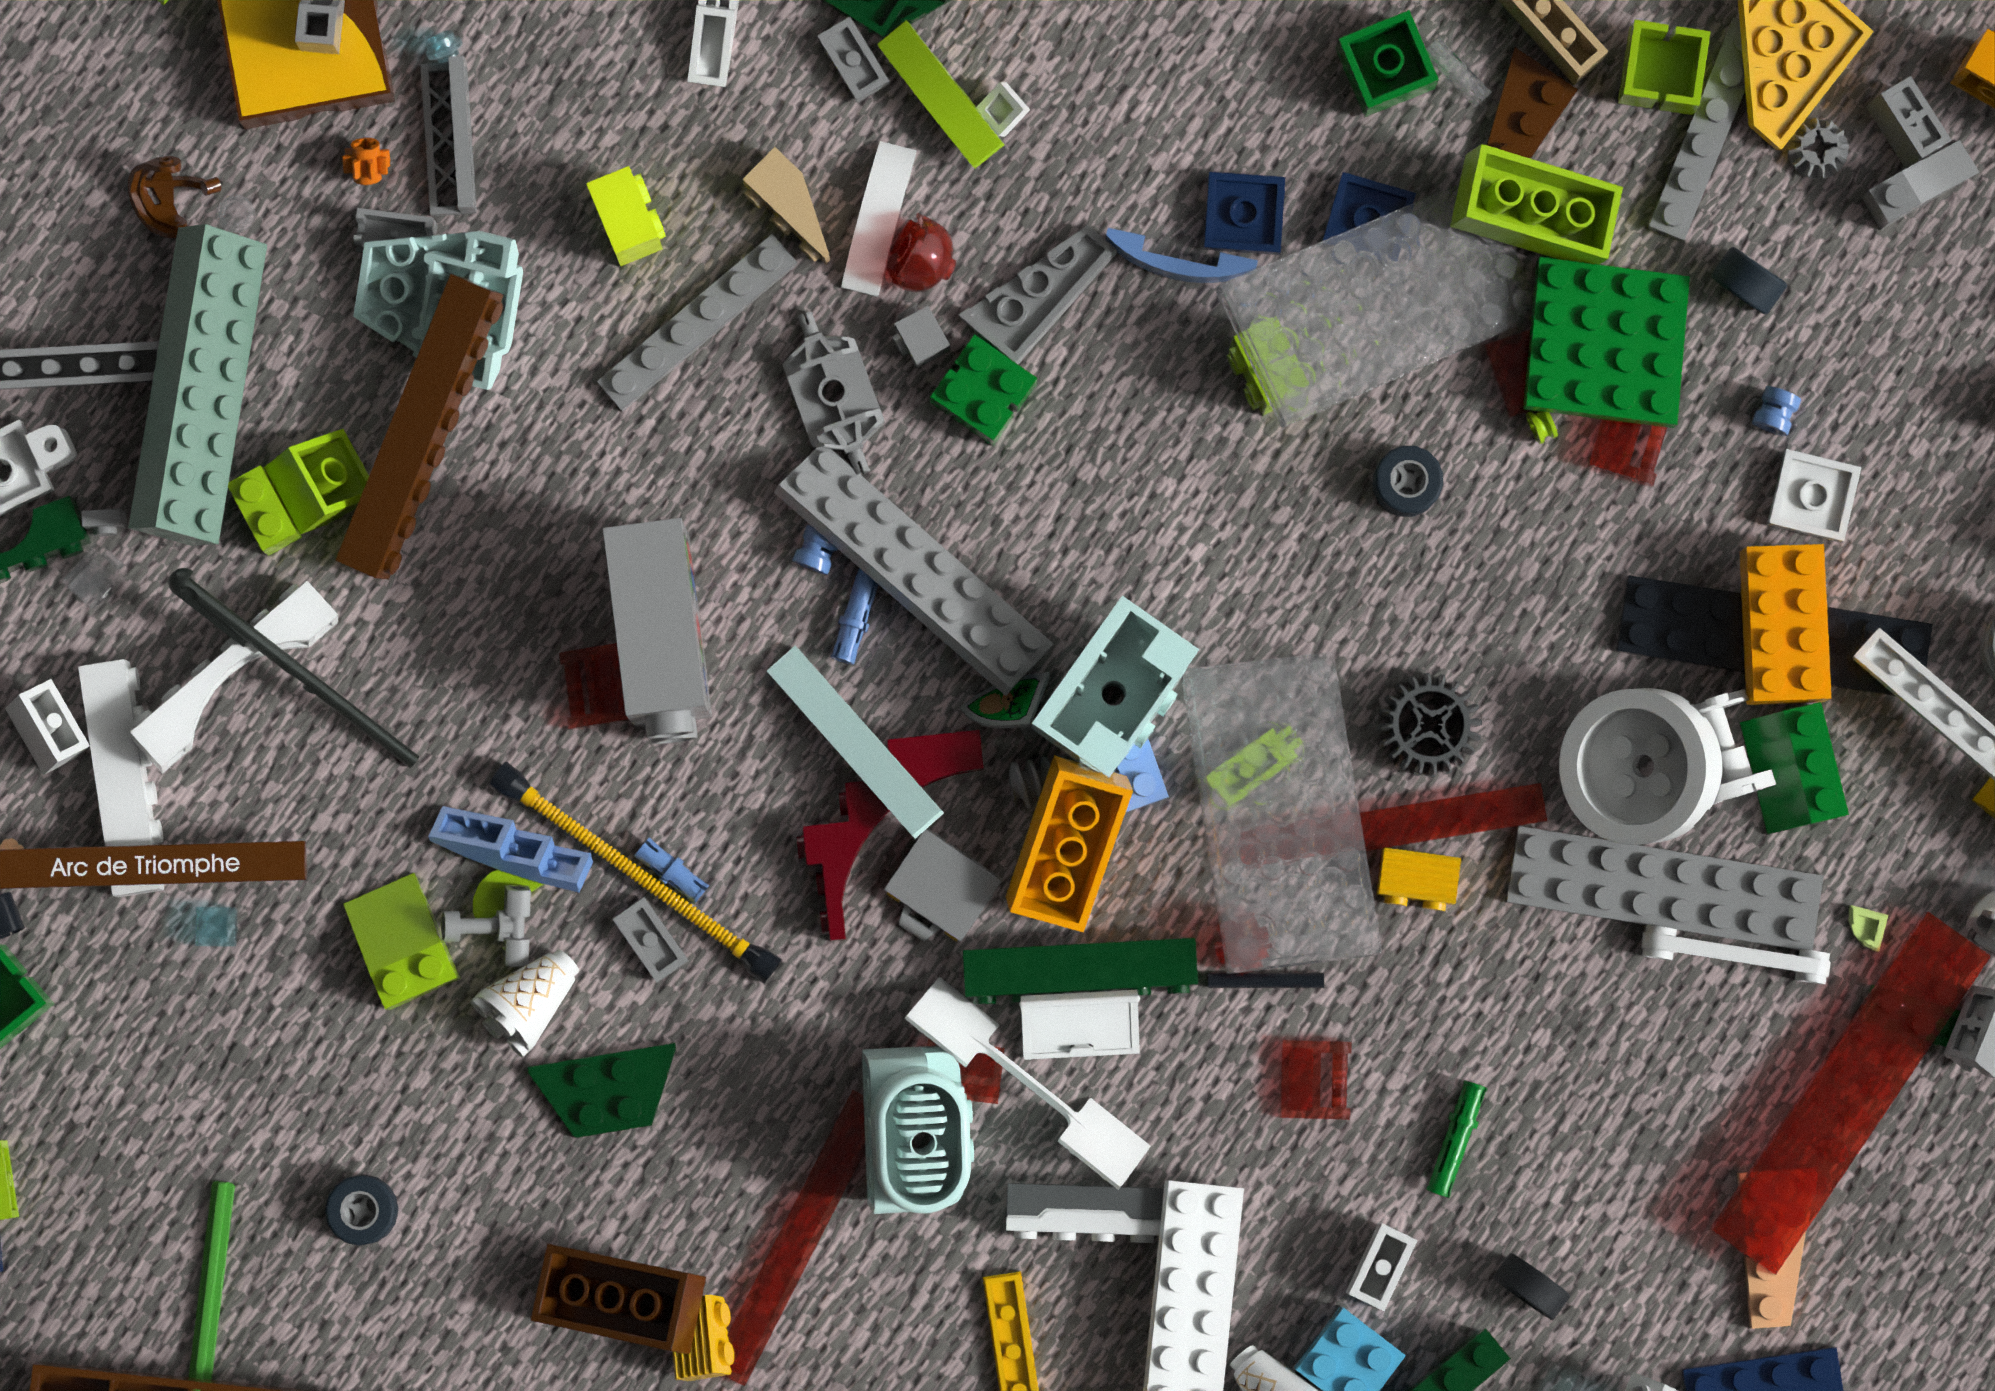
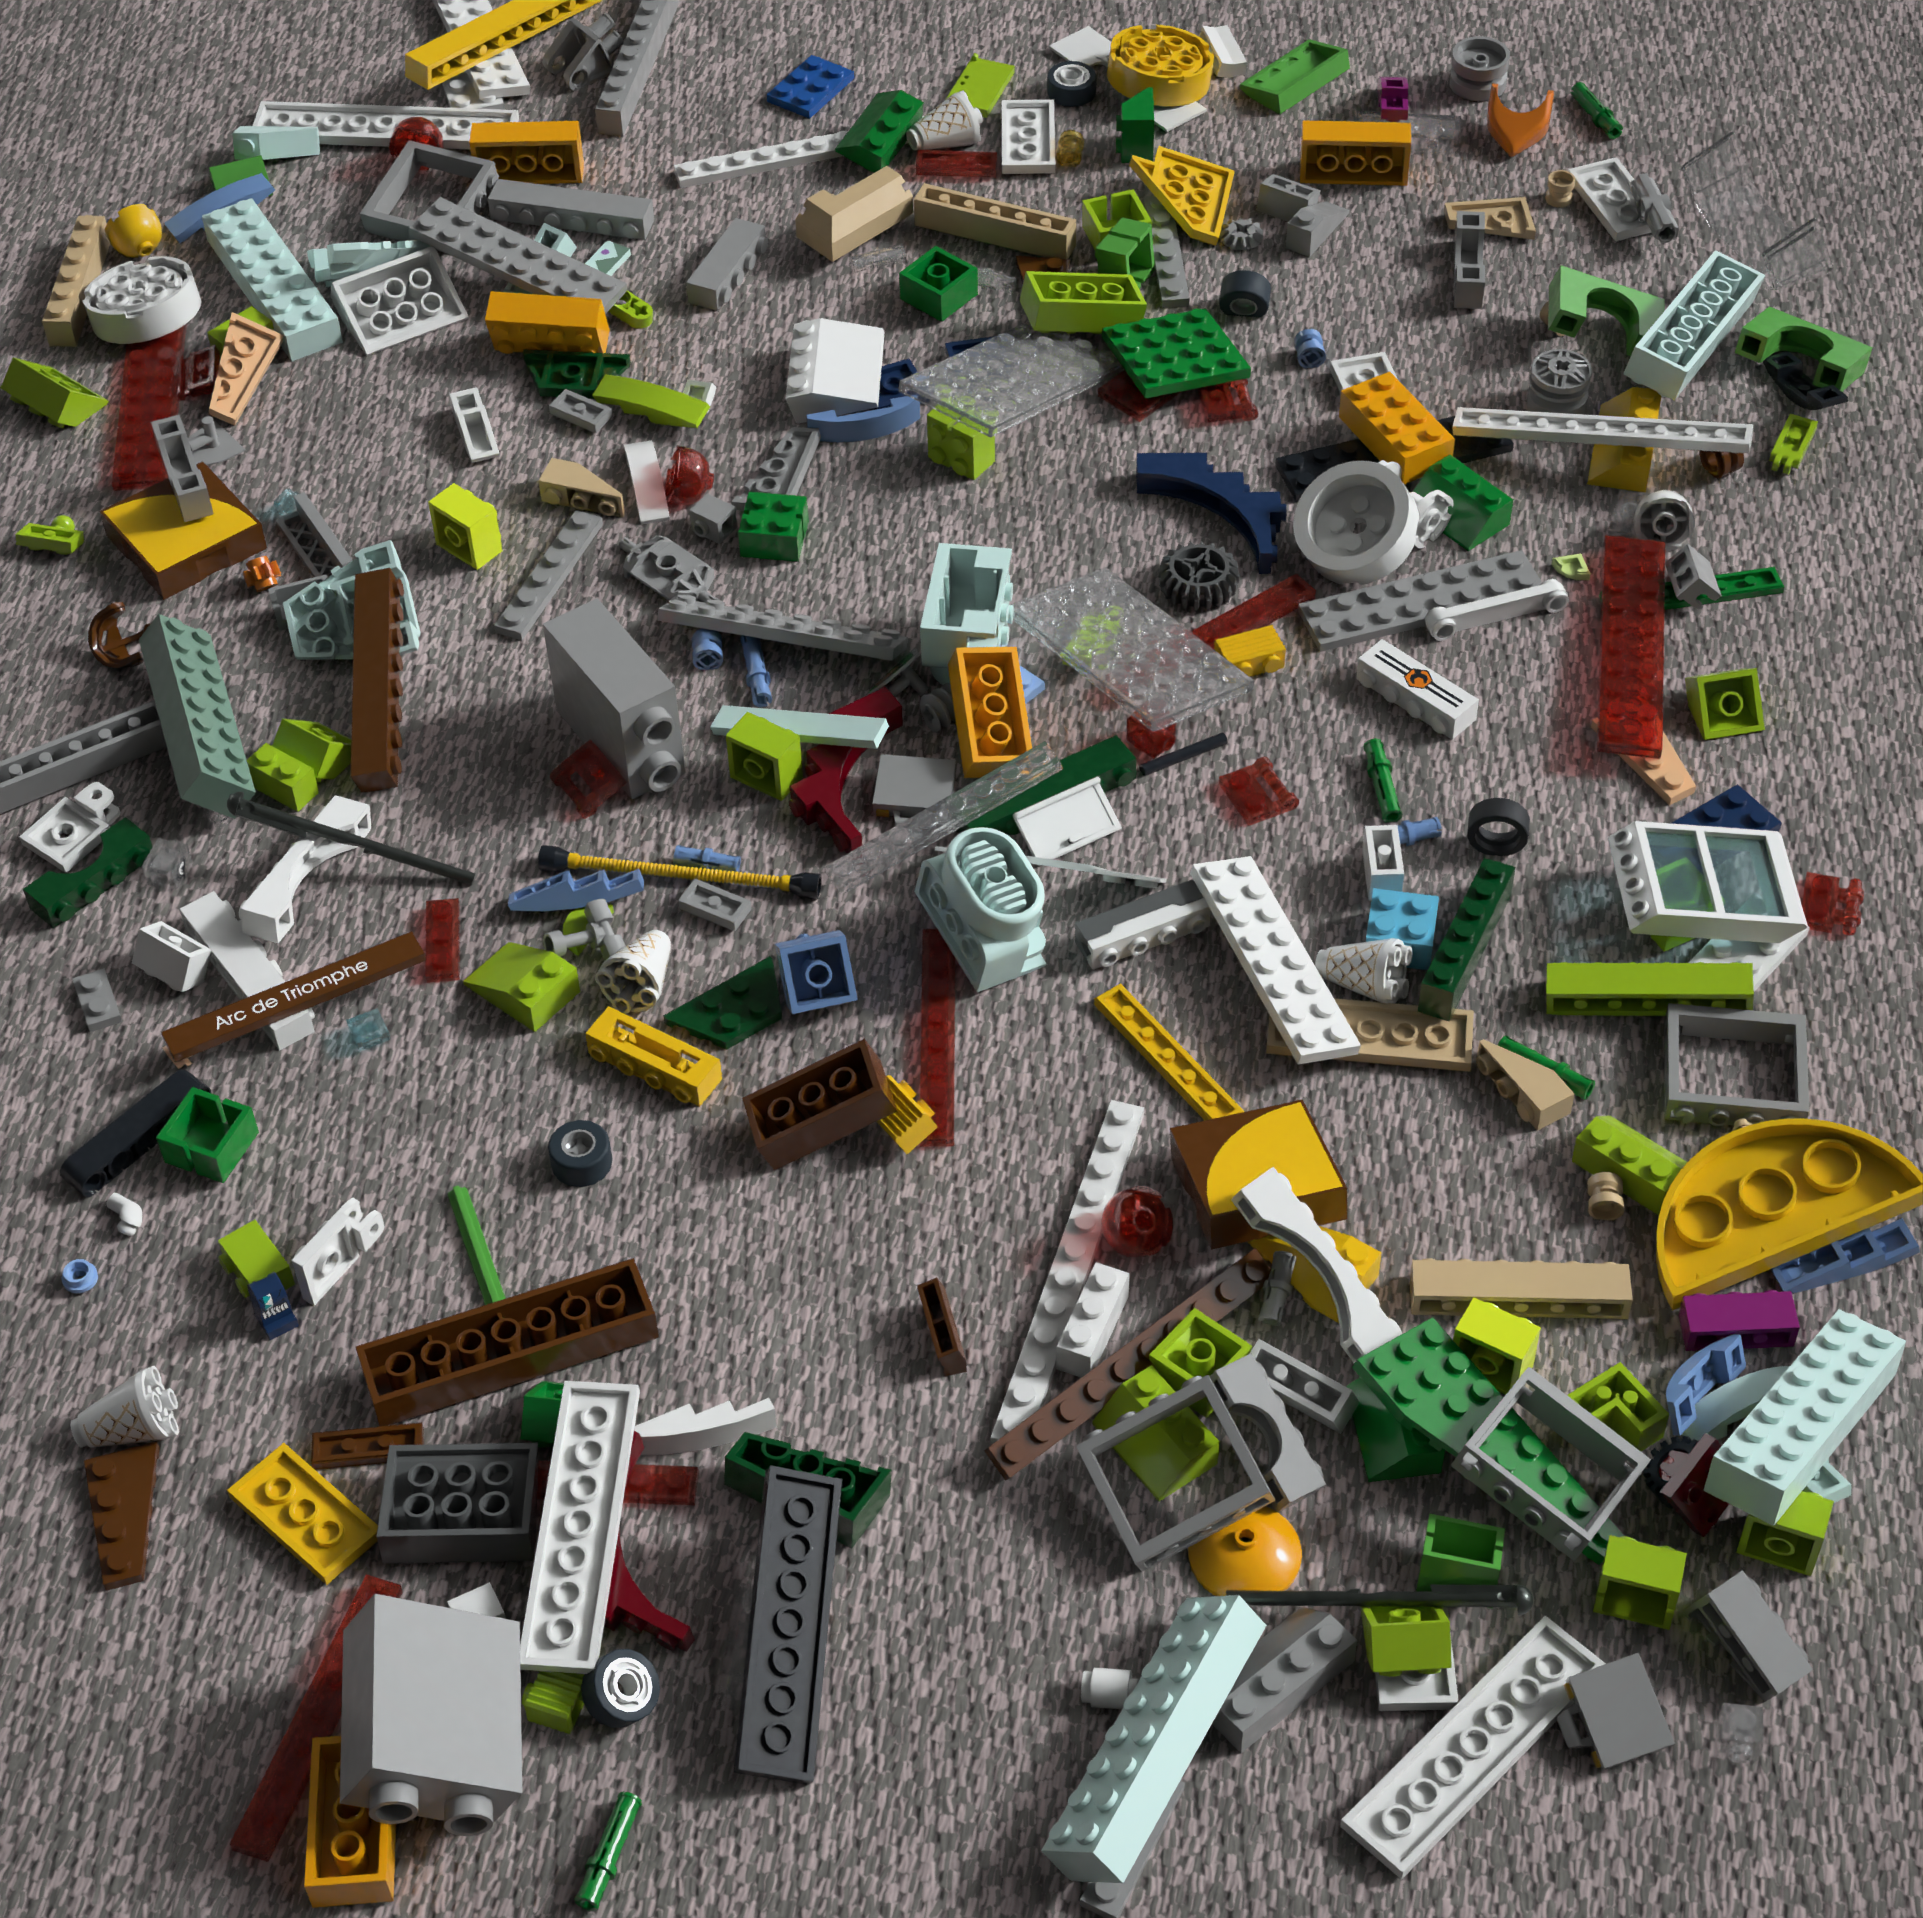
camera: 20 degrees left, 35 degrees down
(63, 1218) = (335, 1249): none -> white plate
(104, 521) = (160, 826): light grey plate -> none
(345, 834) = (442, 940): none -> clear red plate
(465, 1116) = (653, 1057): none -> yellow brick
(702, 1109) = (816, 971): none -> medium blue piece
(796, 767) = (764, 755): none -> lime brick
(943, 964) = (943, 818): none -> clear plate
(1184, 156) = (834, 367): none -> white slope
(1417, 471) = (1094, 466): black wheel -> none
(1439, 1226) = (1419, 830): none -> medium blue pin
(1541, 425) = (1163, 410): lime bush -> none
(1548, 659) = (1224, 493): none -> dark blue arch
(1571, 1029) = (1417, 689): none -> white brick
(1644, 138) = (1127, 250): none -> bright green piece
(1900, 1227) = (1726, 702): none -> lime slope

